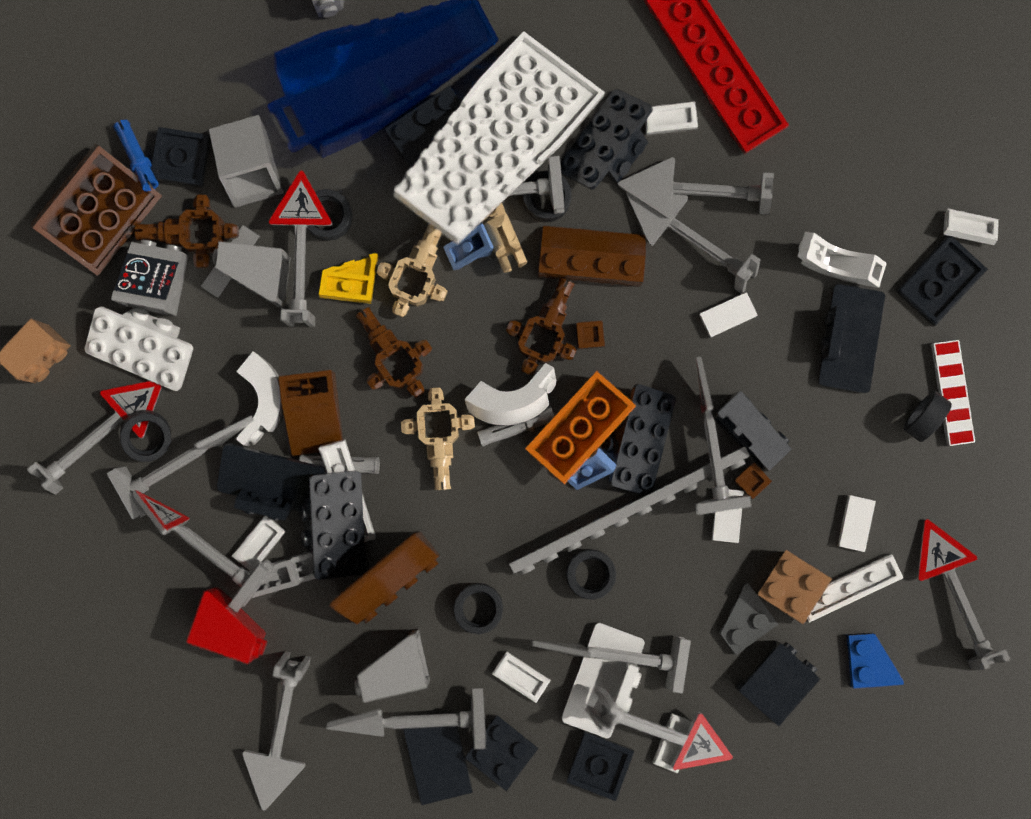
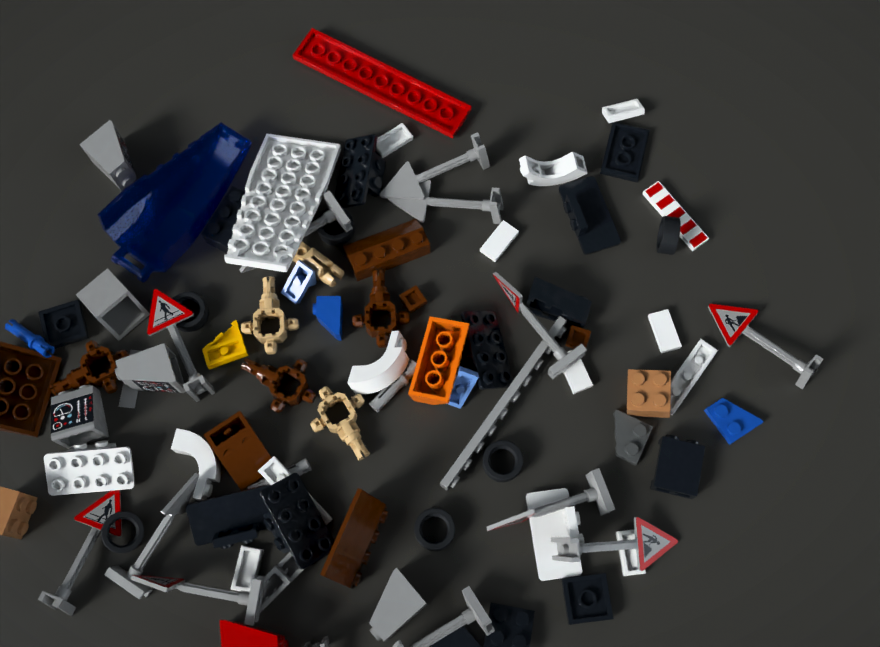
camera: 25 degrees left, 15 degrees down
(486, 303) = (330, 314): none -> blue slope
(521, 676) = (493, 564): white tile -> none

